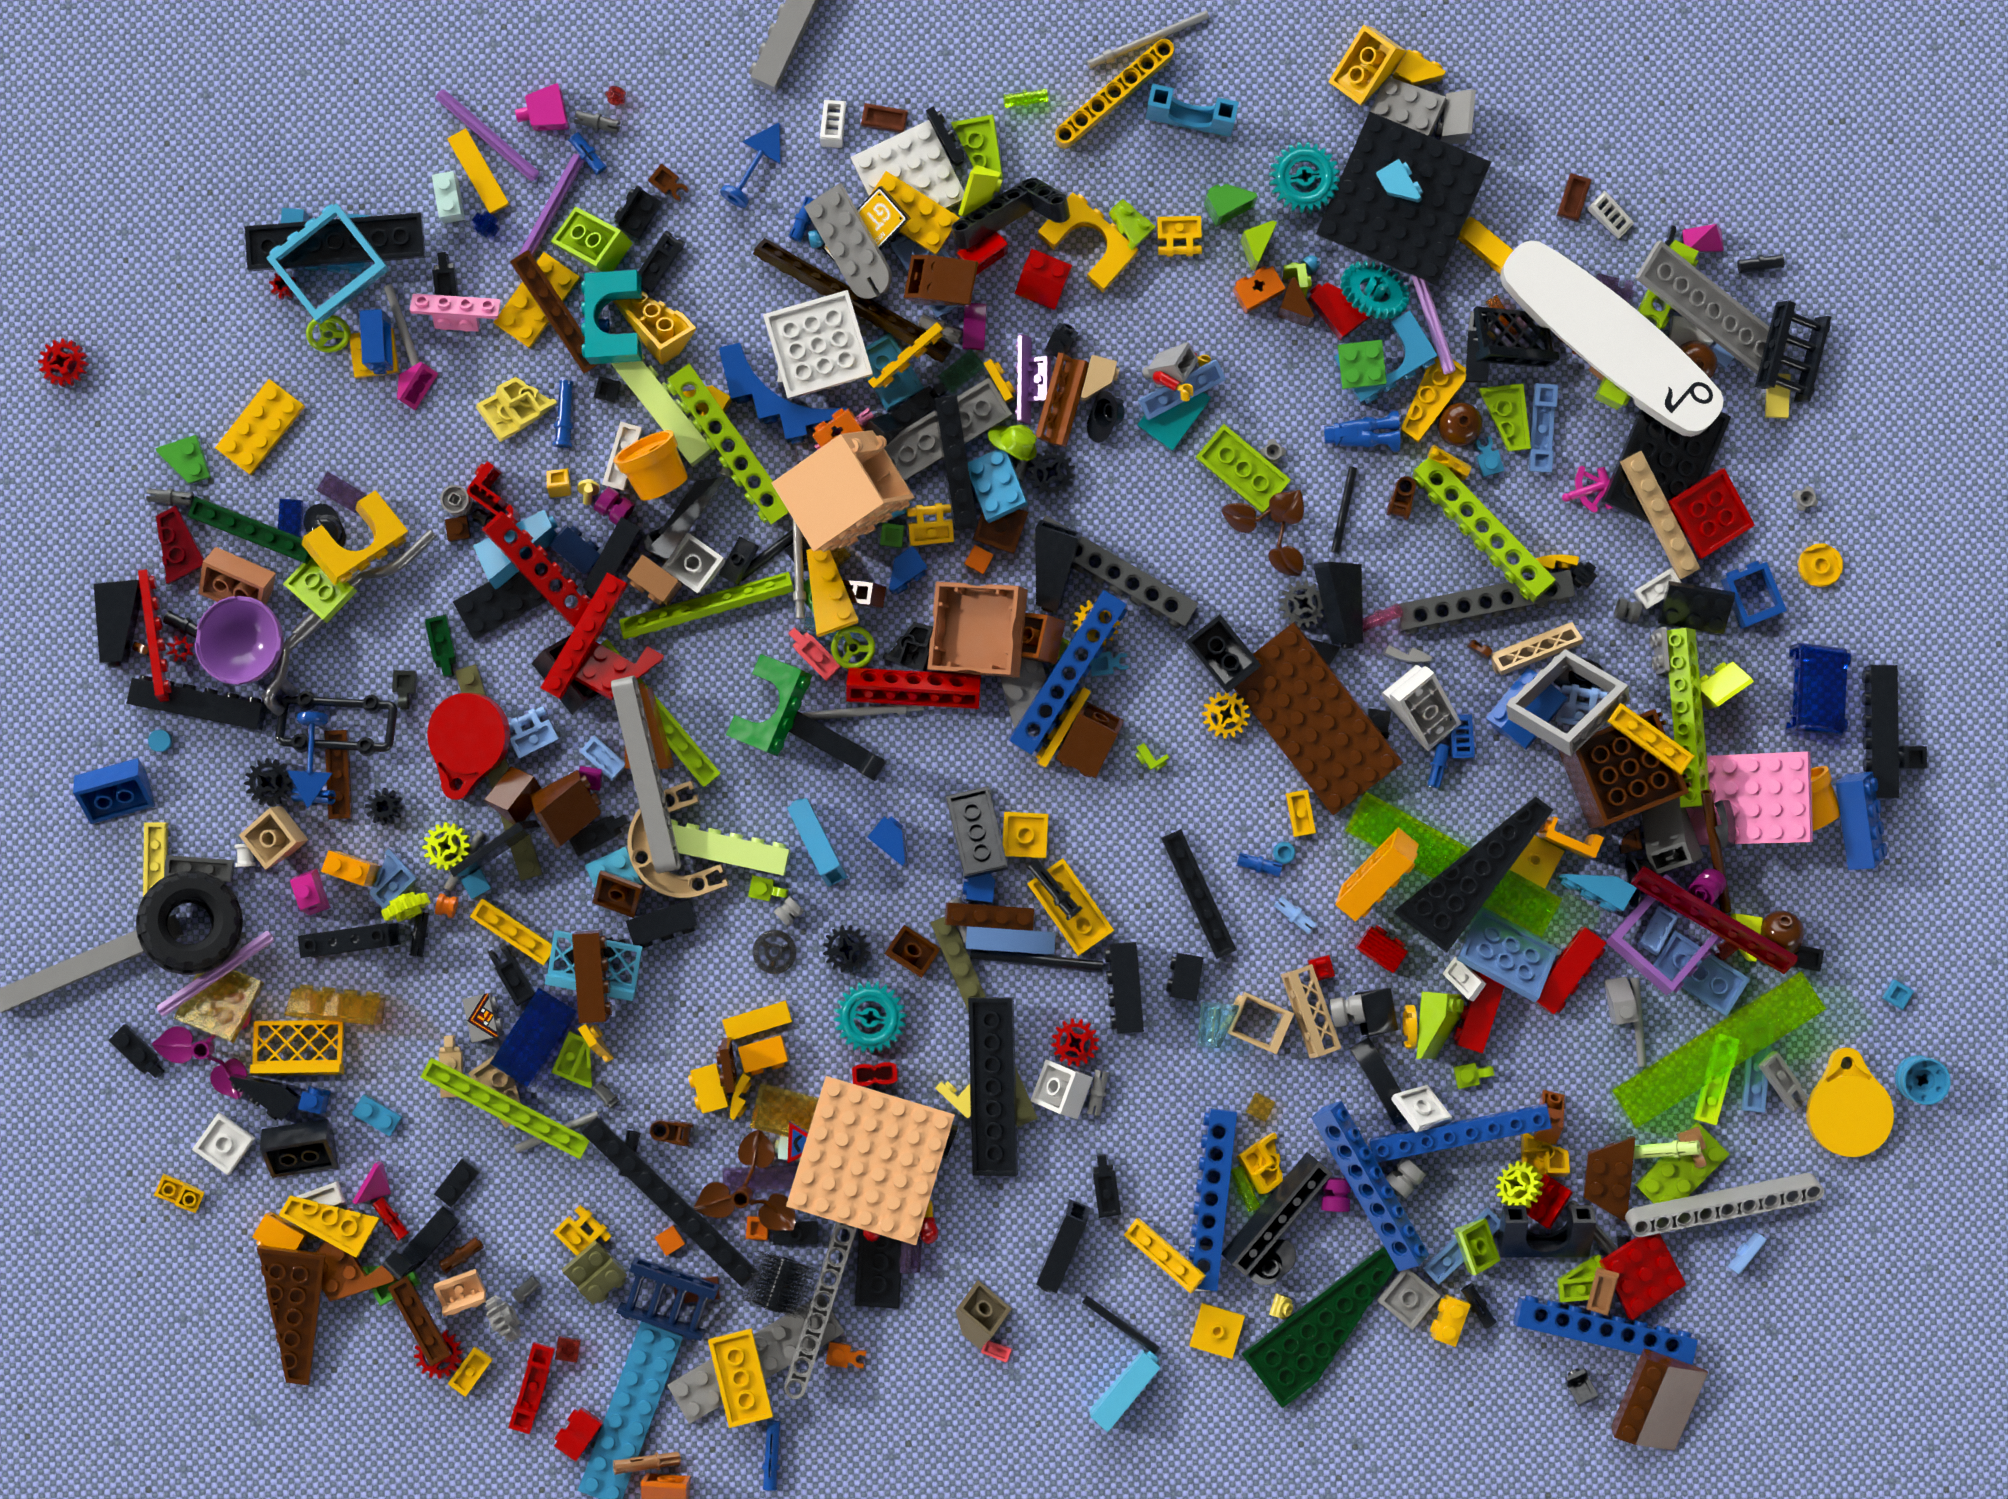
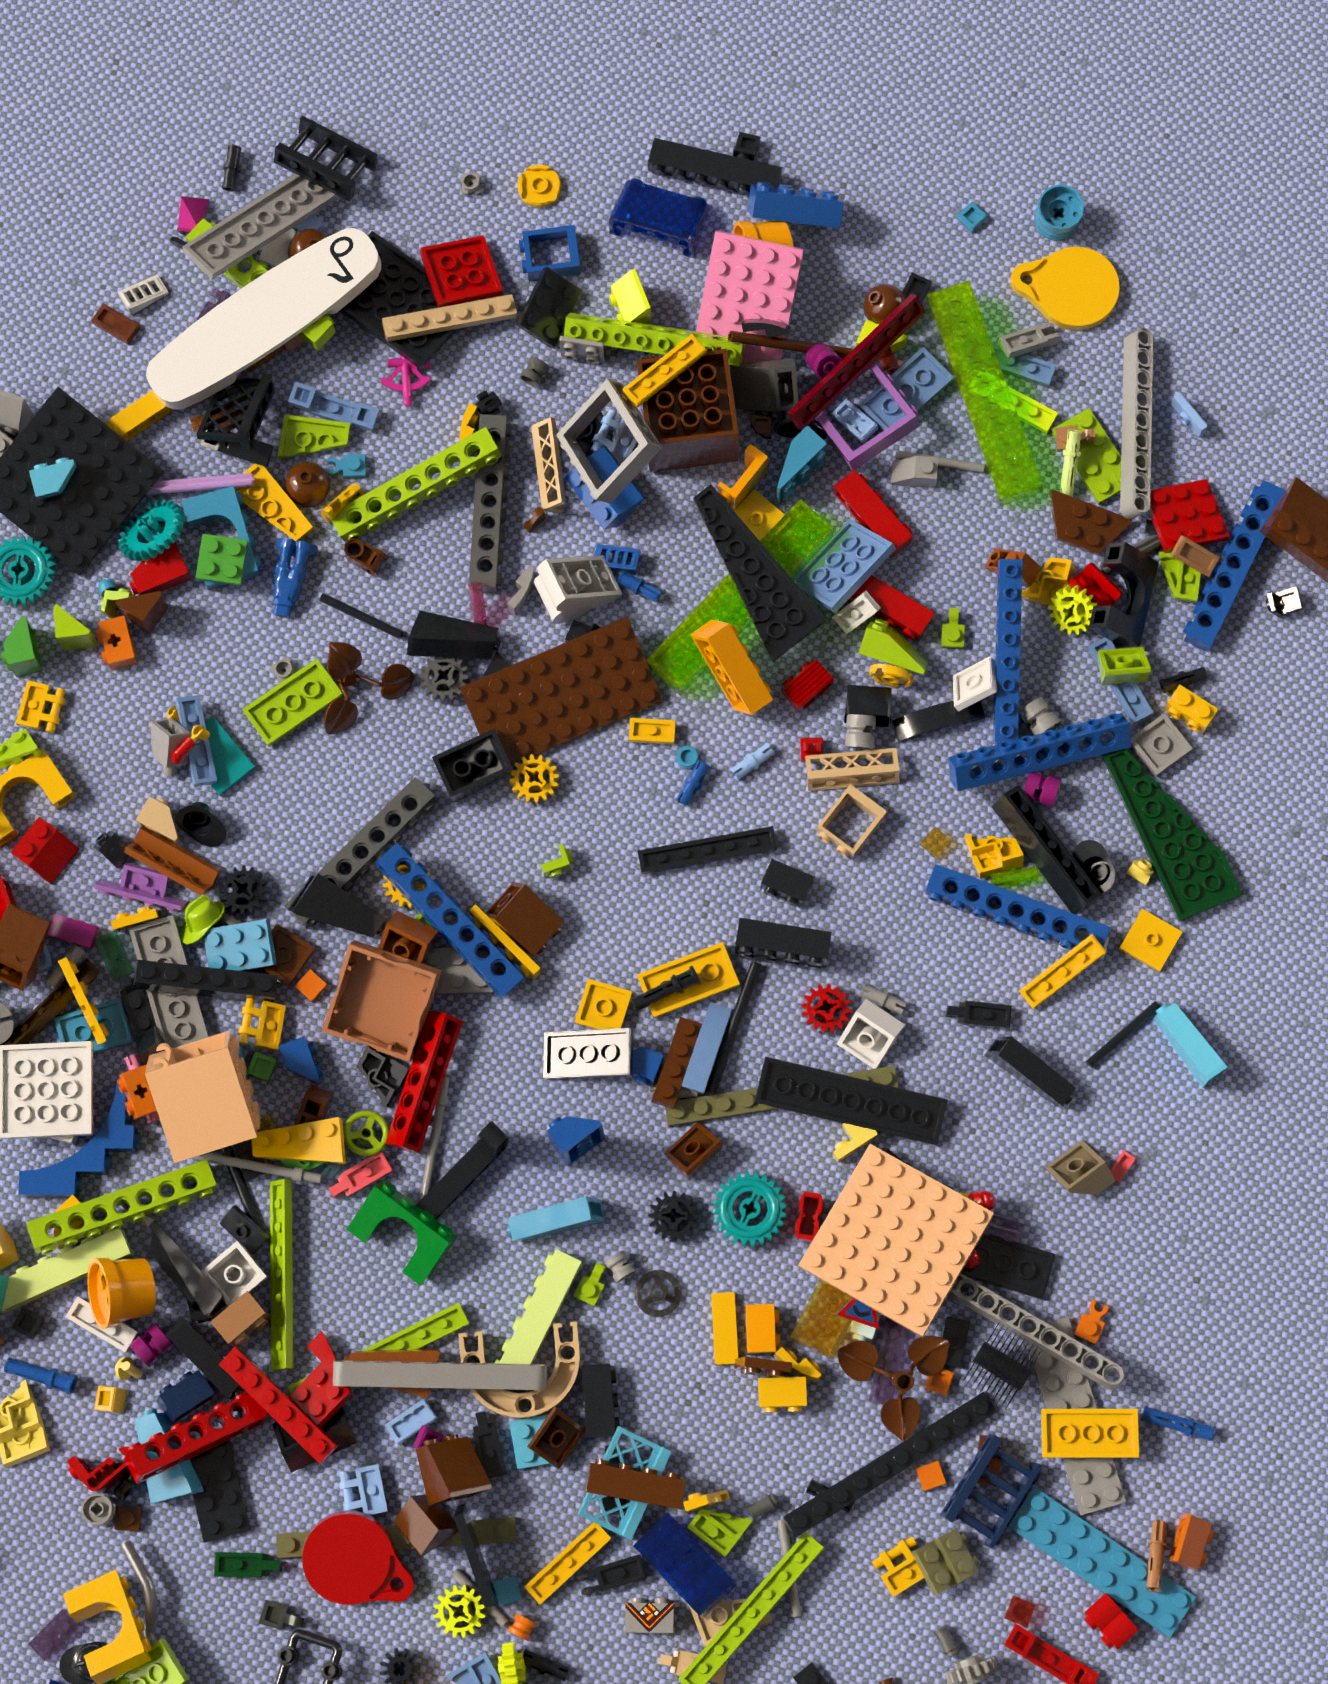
camera: 70 degrees left, 10 degrees down
(673, 1132) = (818, 1443): reddish brown piece -> none
(1105, 663) = (452, 884): dark azure plate -> none
(1215, 1023) = (840, 864): clear light blue wing -> none
(1655, 589) = (521, 341): white plate -> none
(1778, 401) = (369, 185): light yellow tile -> none

